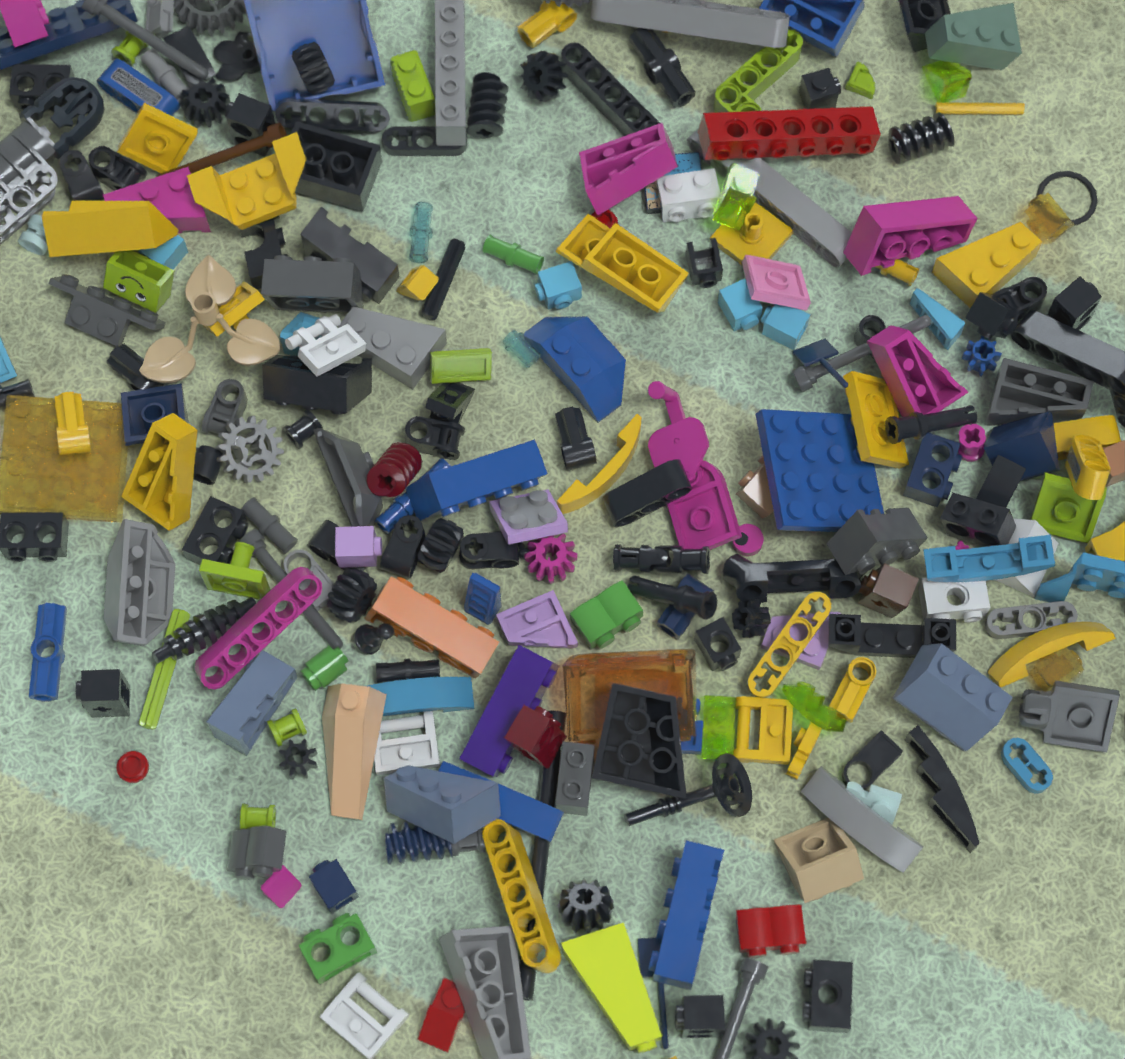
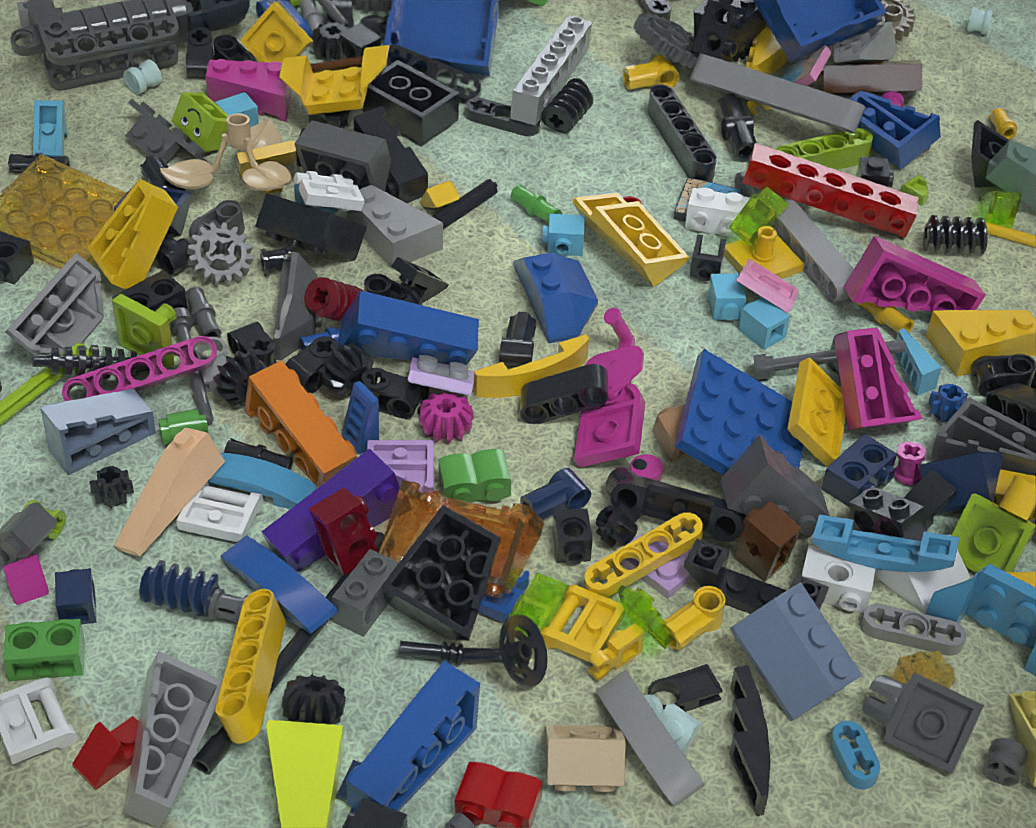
camera: 20 degrees right, 25 degrees down
(71, 429) = (76, 187): yellow piece -> none
(105, 227) = (197, 68): yellow slope -> none
(287, 727) = (128, 455): lime bush -> none
(313, 68) = (432, 32): black gear -> none
(357, 546) = (266, 336): lavender brick -> none
(370, 638) = (239, 422): black piece -> none
(413, 86) = (511, 70): lime brick -> none
(421, 232) = (464, 166): clear light blue pin -> none
(442, 801) = (223, 552): sand blue wedge -> none
(460, 365) = (443, 257): lime tile -> none
(521, 348) = (504, 262): clear light blue pin -> none
(543, 75) = (627, 99): black gear -> none
(626, 166) = (669, 168): dark pink wedge -> none
(659, 560) = (552, 449): black piece -> none
(684, 598) = (553, 477): black pin -> none
(819, 352) = (786, 353): dark blue piece -> none
(918, 425) = (859, 421): black pin -> none
(992, 316) = (971, 369): black brick -> none
(1012, 663) = (964, 651): yellow slope -> none

